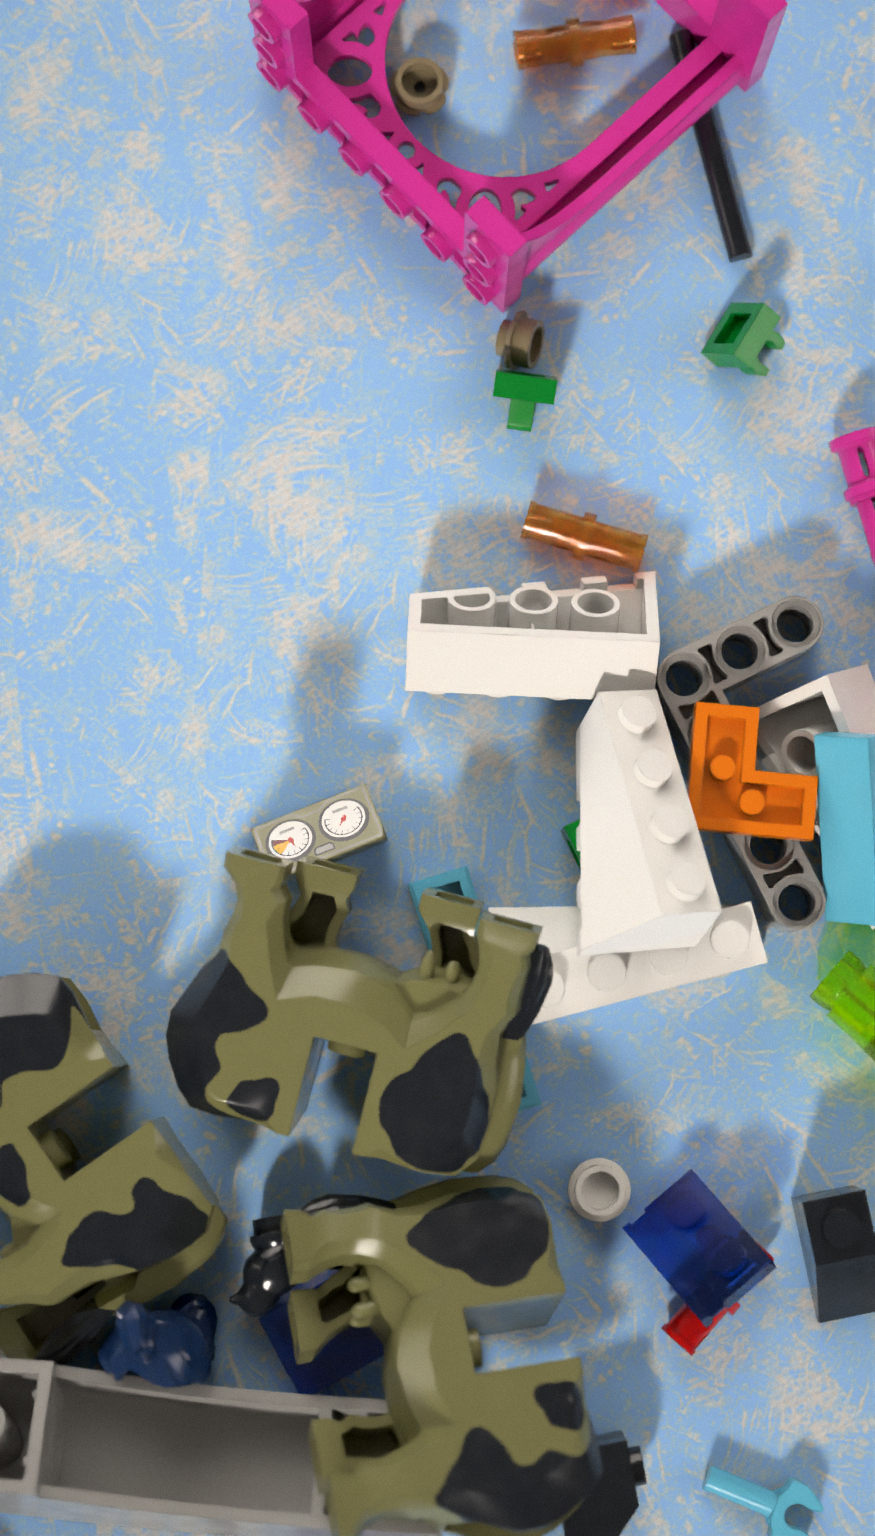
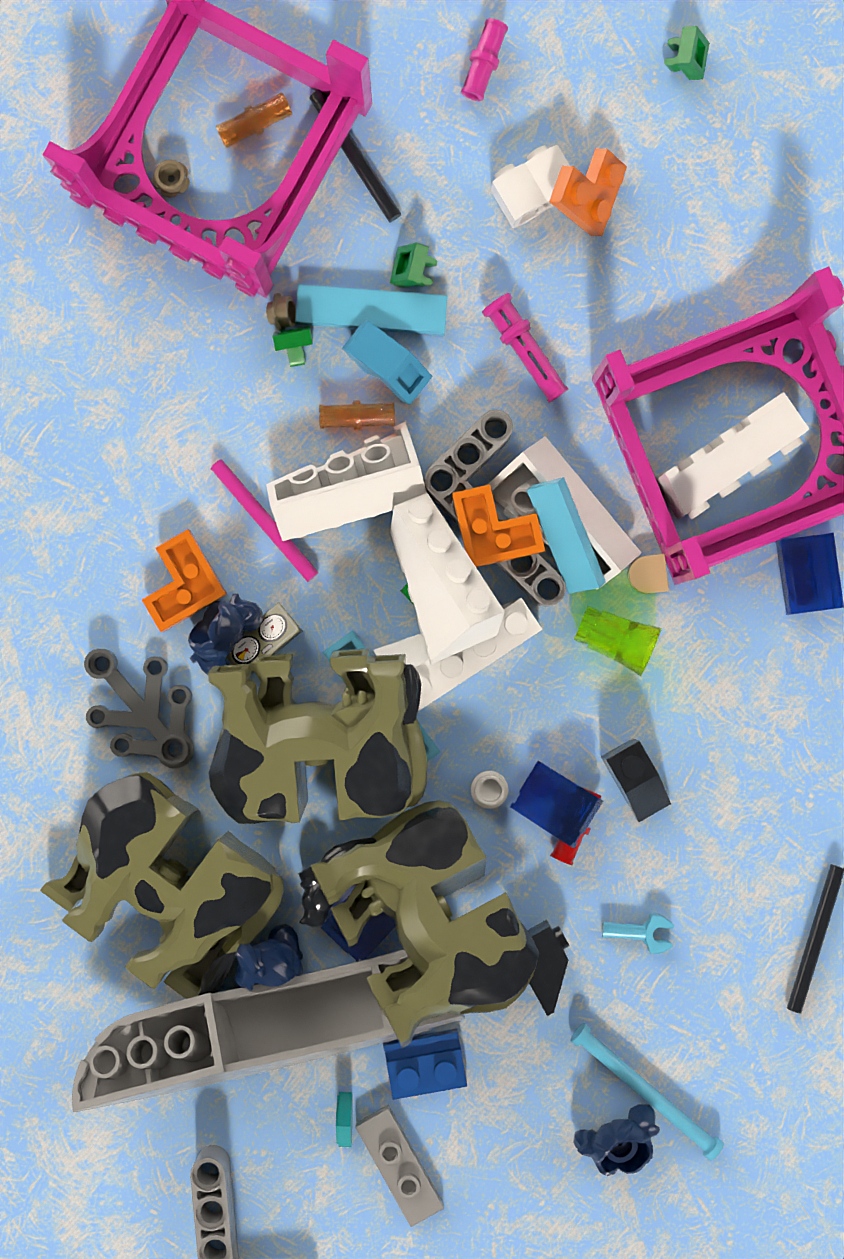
camera: 15 degrees left, 5 degrees up
(98, 885) = (144, 712): none -> dark grey plant
(242, 715) = (193, 585): none -> orange plate
(263, 796) = (221, 630): none -> dark blue hair
(385, 649) = (263, 519): none -> dark pink bar
(659, 384) = (384, 309): none -> medium azure tile
(661, 468) = (387, 360): none -> dark azure slope

